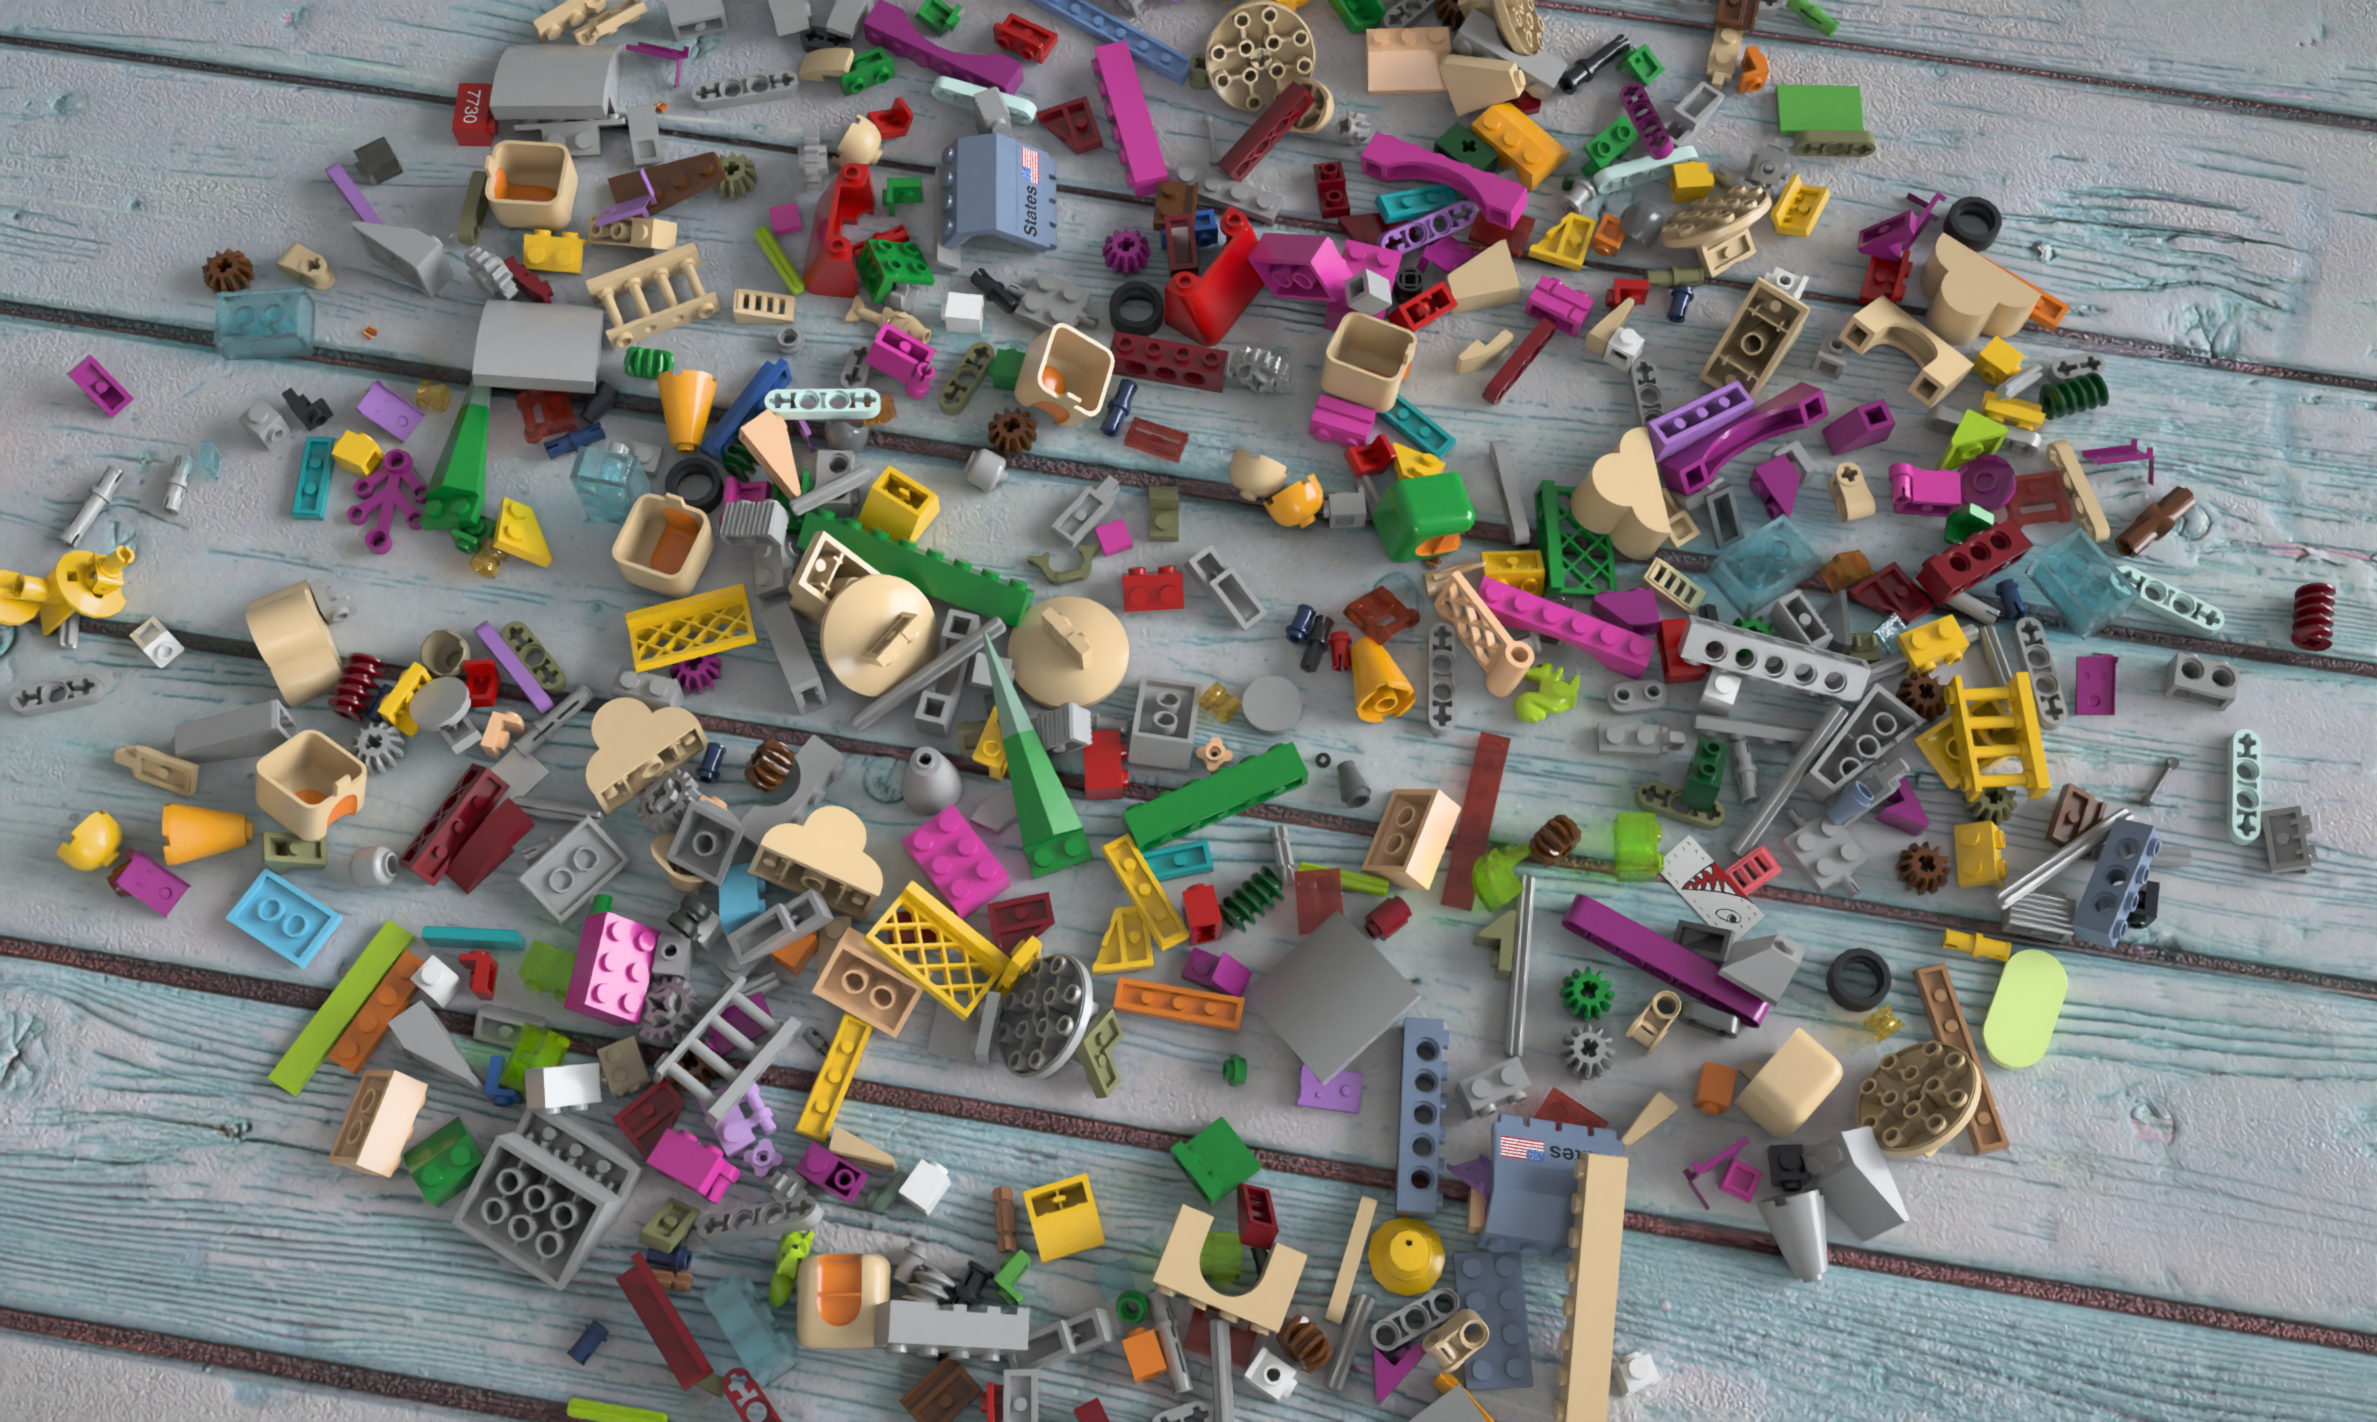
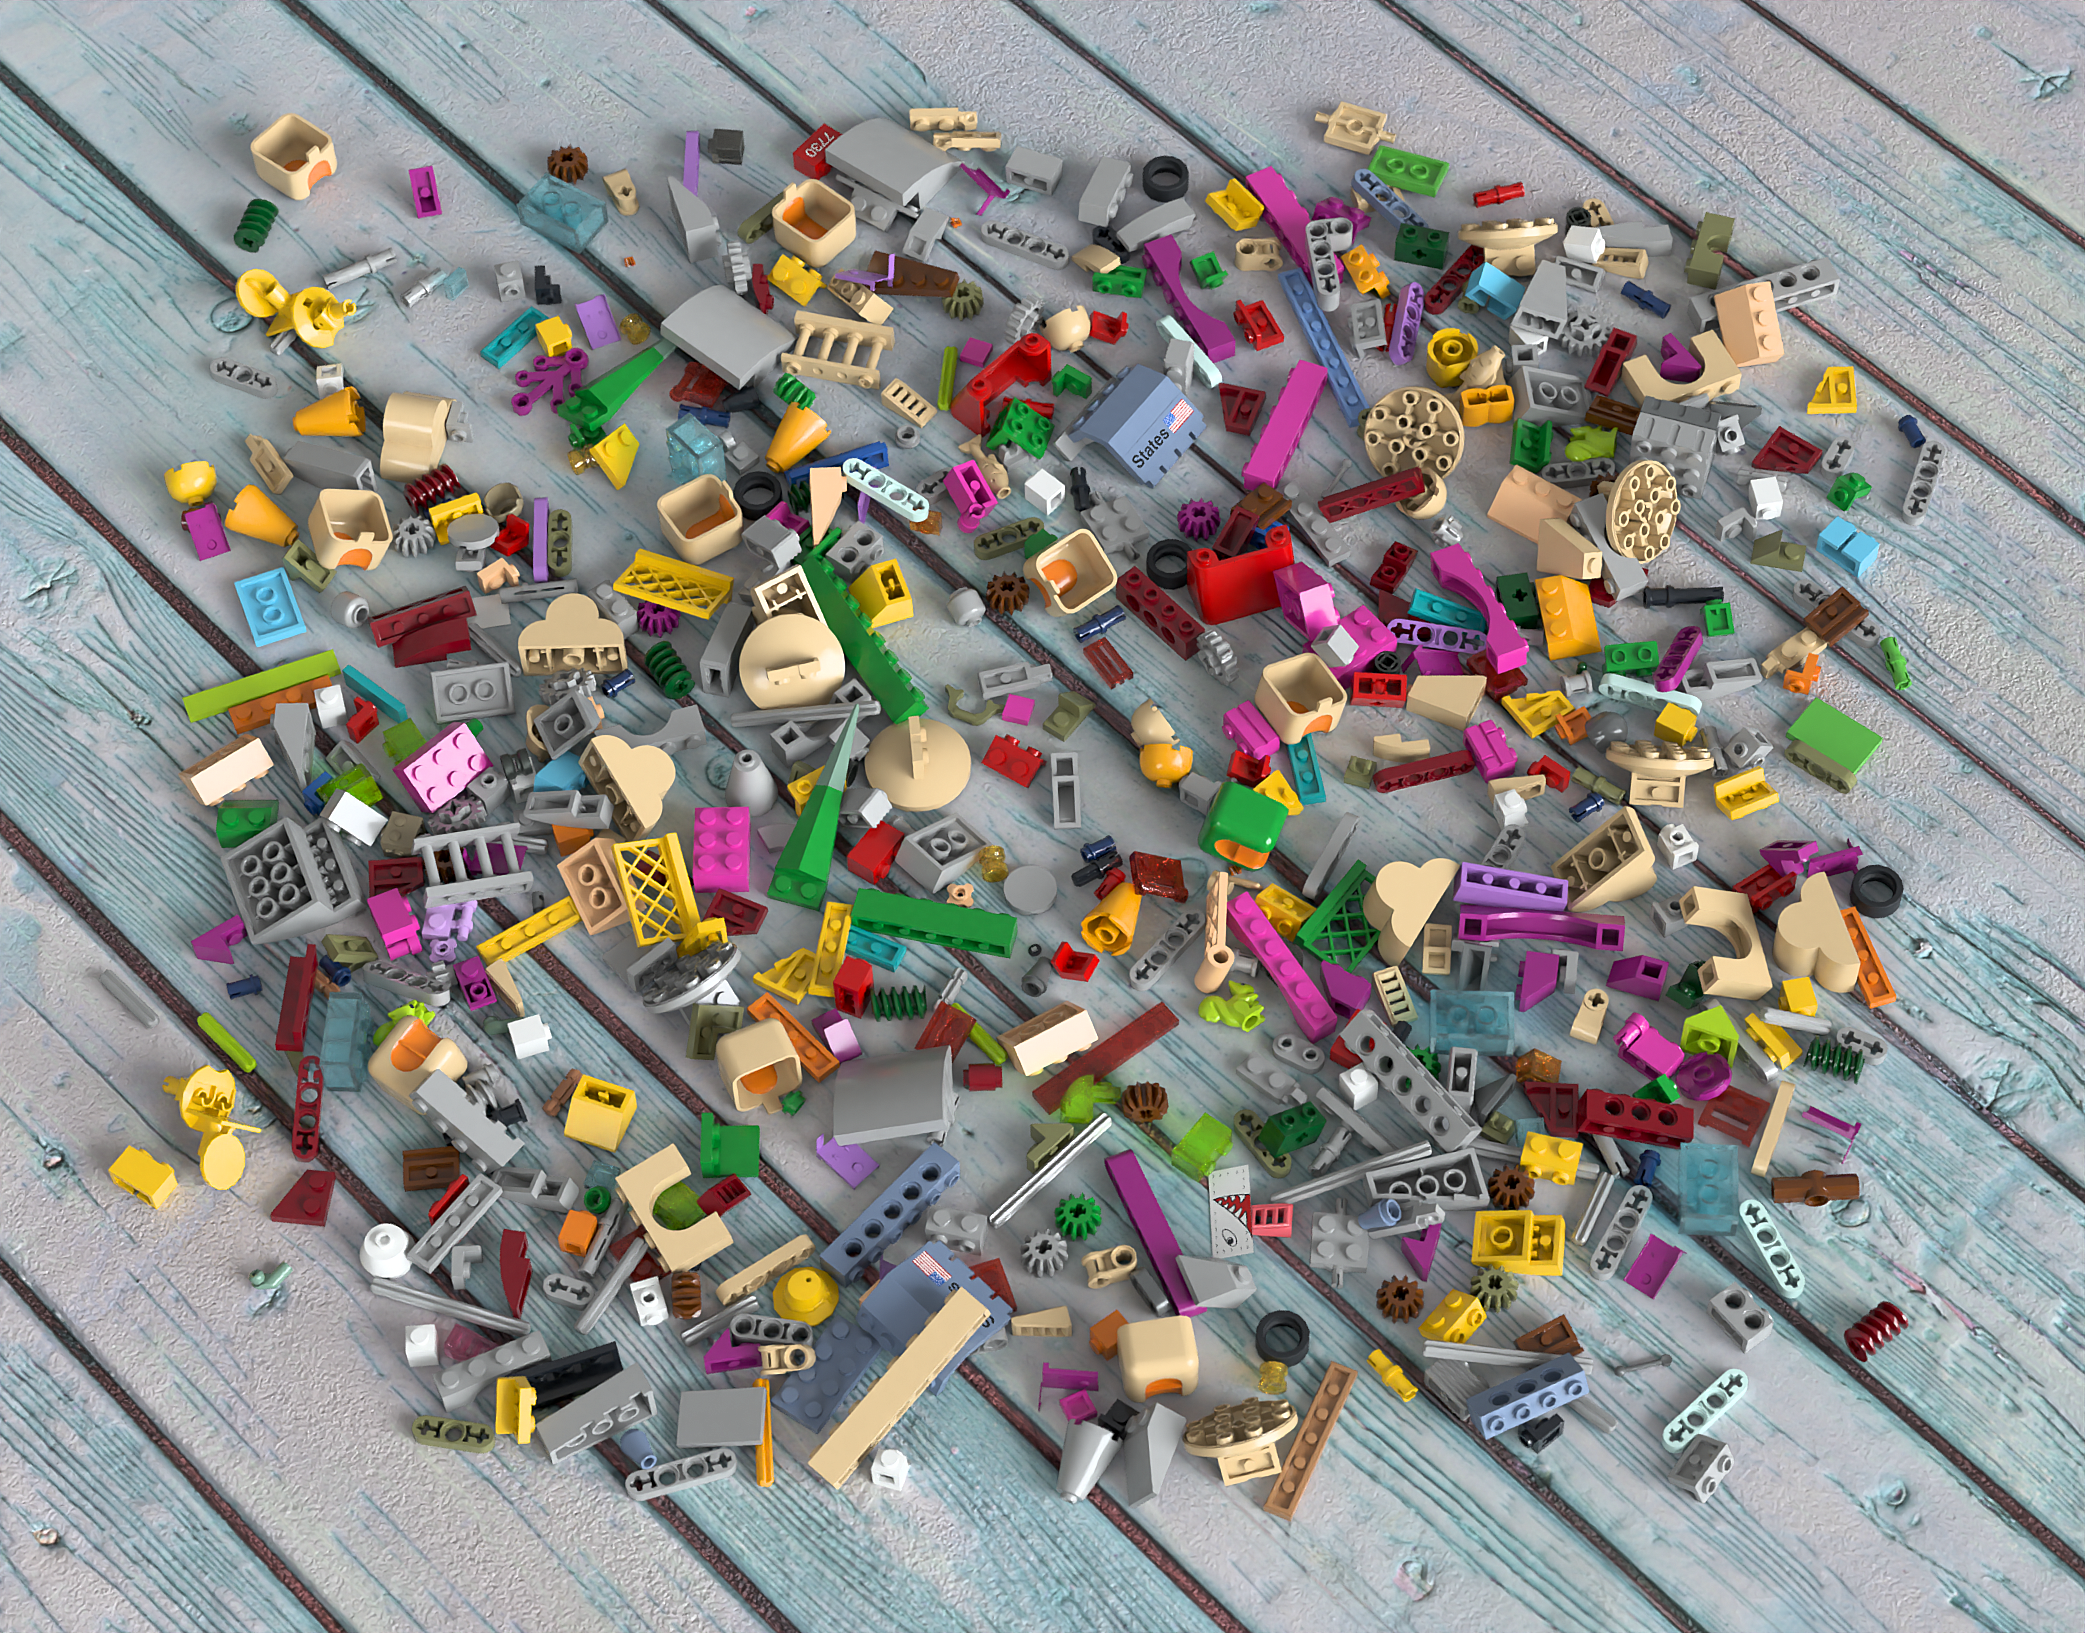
camera: 40 degrees right, 10 degrees down
(189, 677) = (332, 416): none -> light orange cone
(519, 1320) = (215, 943): none -> magenta slope
(752, 719) = (669, 670): none -> dark green piece
(769, 765) = (651, 706): reddish brown gear -> none
(831, 490) = (842, 551): light grey axle -> none
(845, 437) = (886, 525): dark grey hair -> none
(1012, 1269) = (537, 1126): bright green bracket -> none
(1181, 1058) = (759, 1065): none -> tan piece
(1375, 749) = (1074, 964): none -> red bracket
(1463, 397) = (1360, 772): none -> olive tile
(1704, 940) = (1192, 1237): dark grey slope -> none
(1903, 406) = (1689, 989): none -> dark green slope
(2022, 721) = (1543, 1264): yellow fence -> none
(2024, 1009) = (1388, 1441): yellowish green tile -> none

